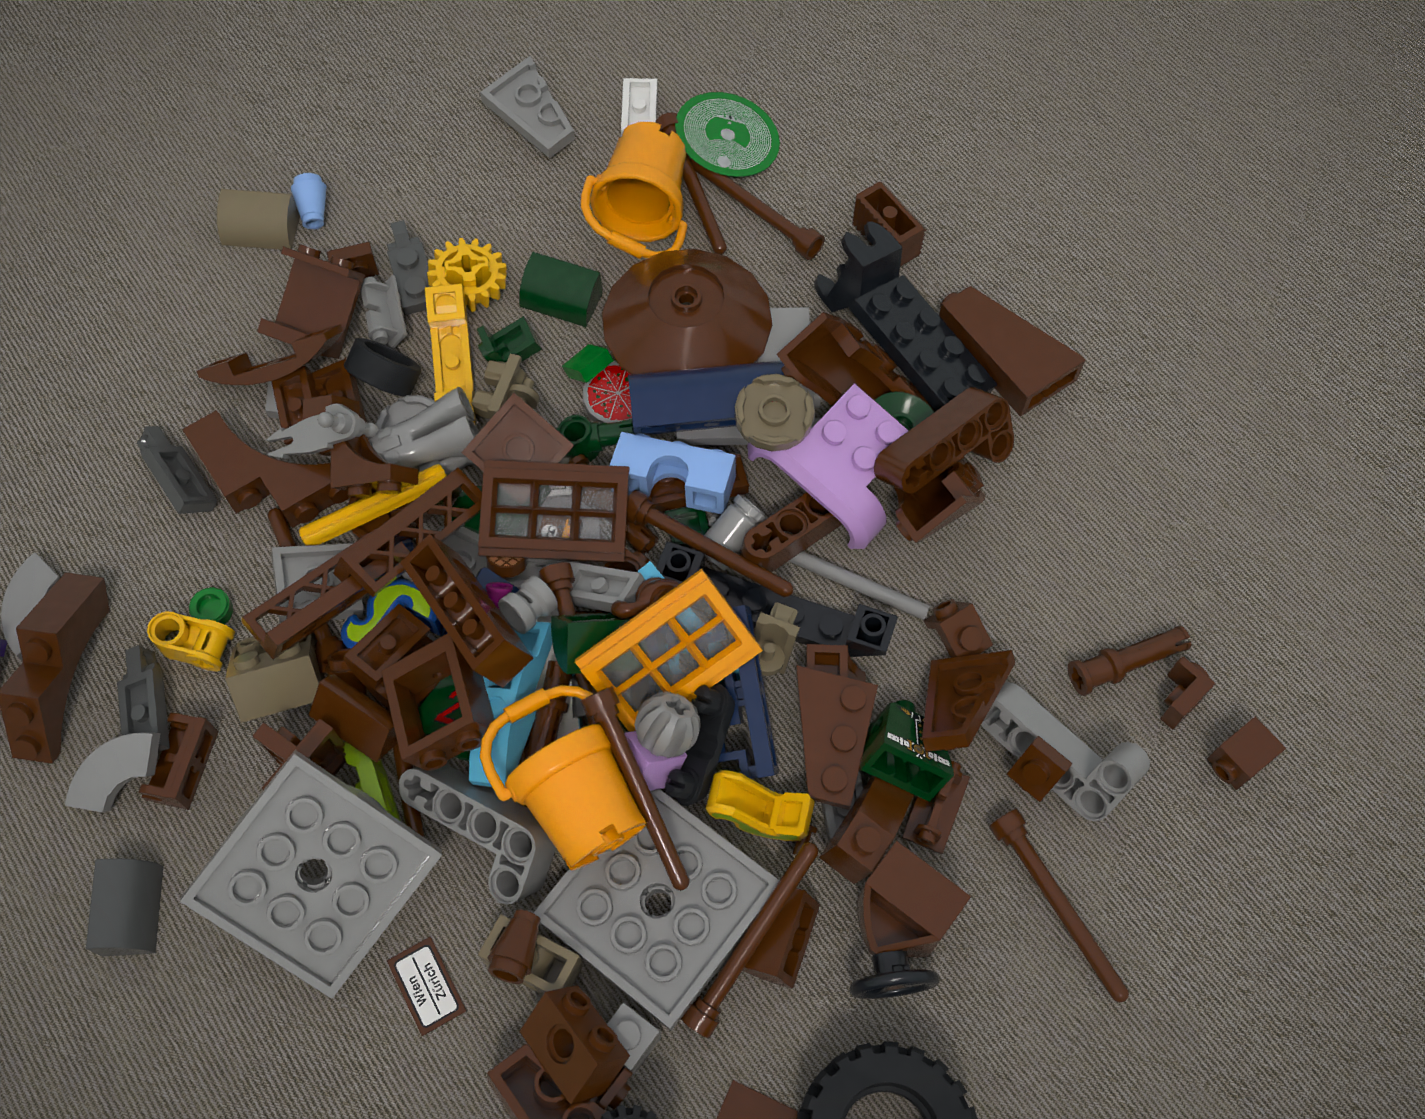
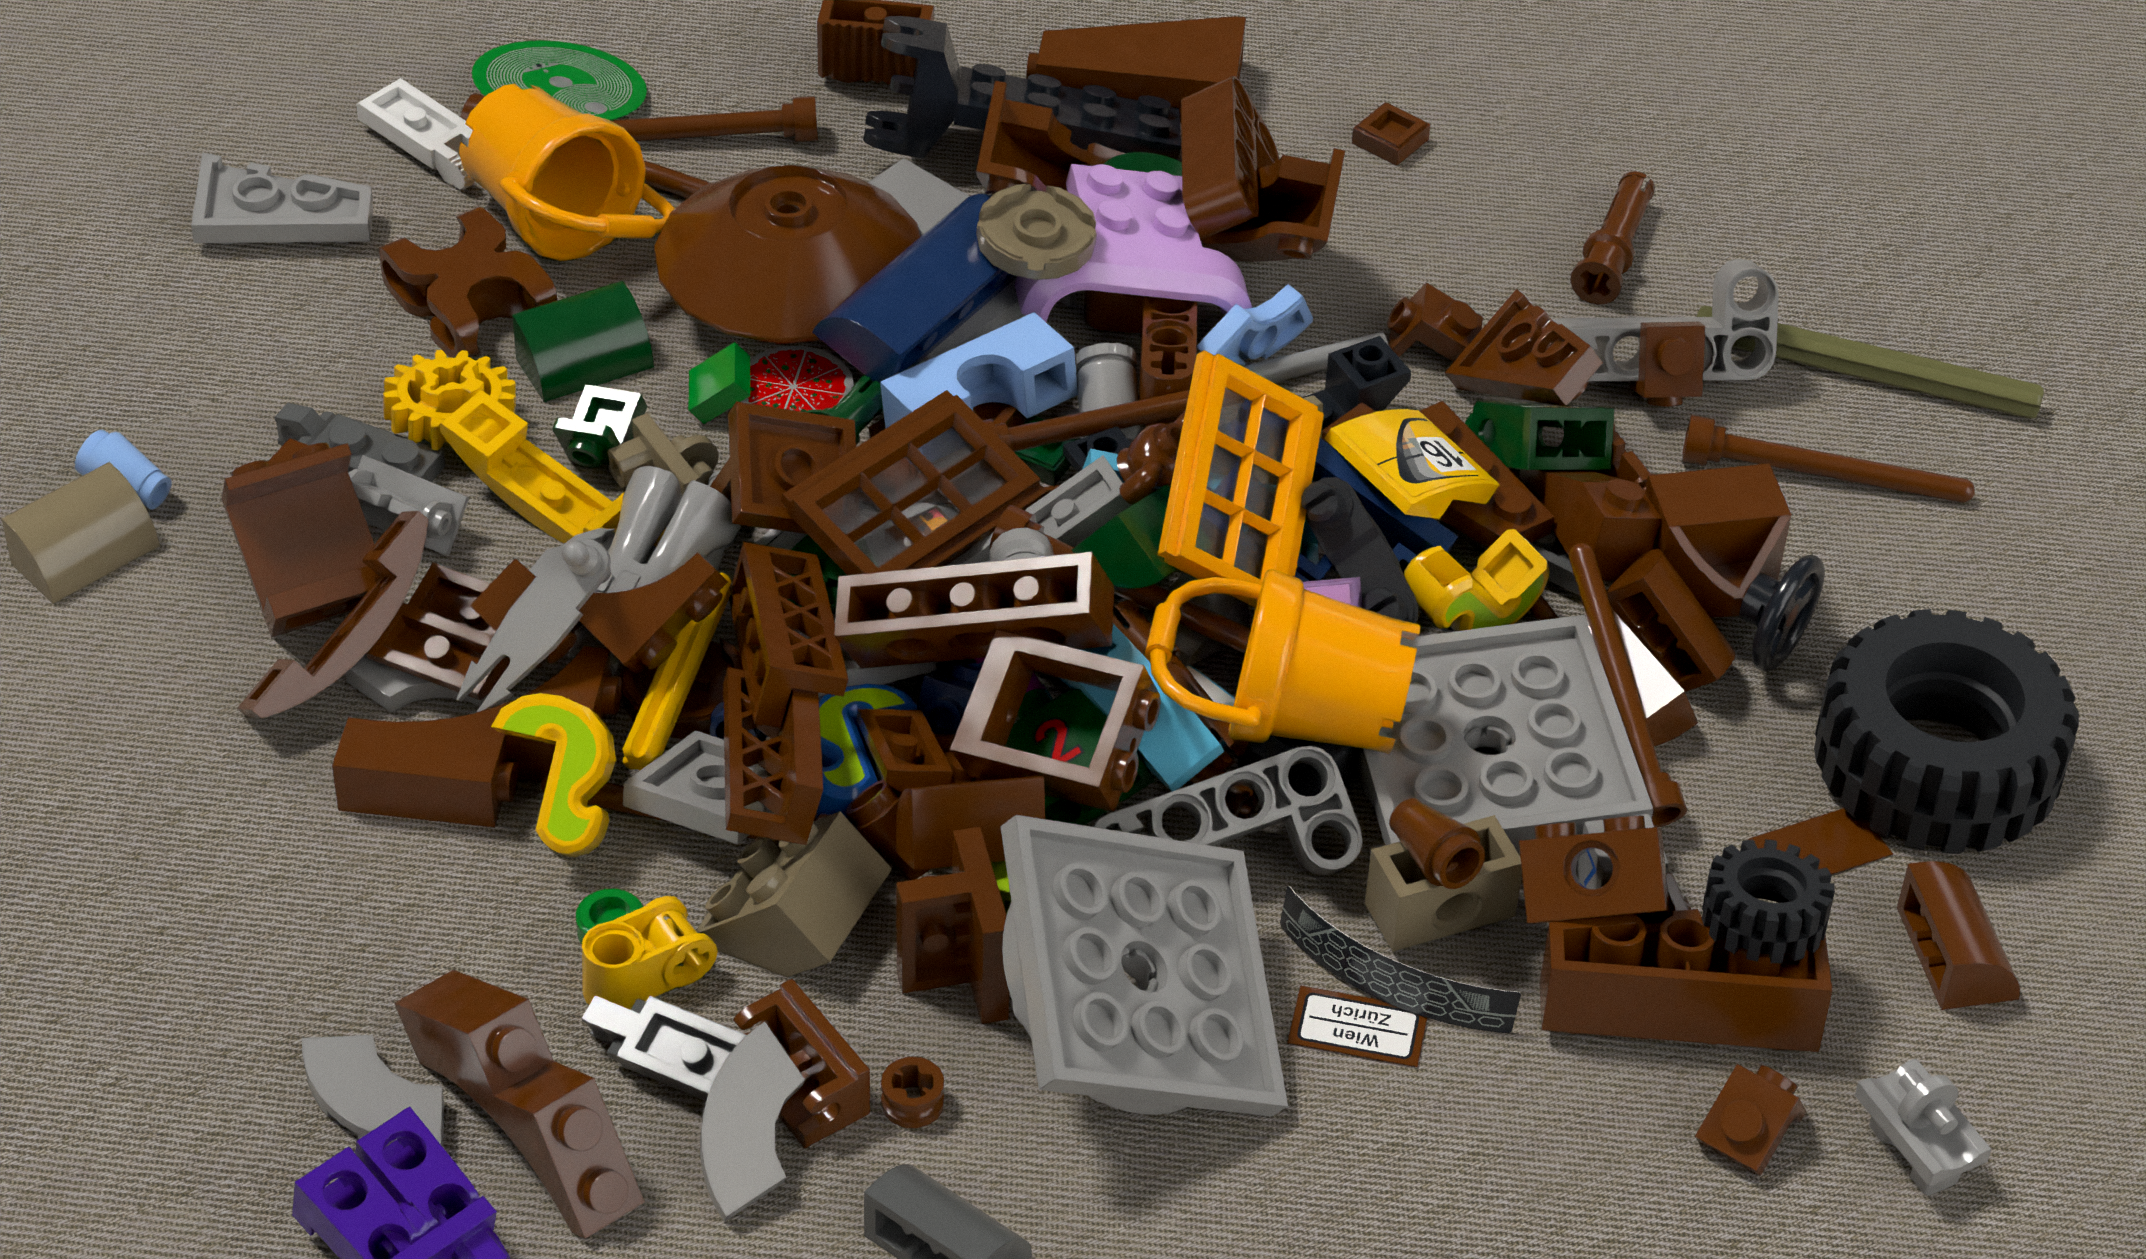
camera: 50 degrees left, 20 degrees down
(175, 473) = (356, 832): dark grey hinge -> none
(193, 822) = (912, 1073): none -> reddish brown bush
(262, 519) = (578, 769): none -> yellow animal
(382, 367) = (494, 532): black tyre -> none
(477, 1049) = (1393, 981): none -> black sticker
(547, 218) = (465, 281): none -> reddish brown piece
(604, 710) = (1251, 557): reddish brown piece -> none
(667, 724) = (1320, 543): light grey piece -> none
(793, 713) = (1411, 461): none -> yellow slope
(832, 927) = (1670, 621): none -> reddish brown brick
(858, 553) = (1259, 329): none -> light blue tile
(1094, 489) = (1391, 133): none -> reddish brown tile
(1183, 886) = (1901, 370): none -> olive axle
(1192, 688) = (1701, 214): reddish brown bracket -> none
(1245, 753) = (1813, 228): reddish brown brick -> none

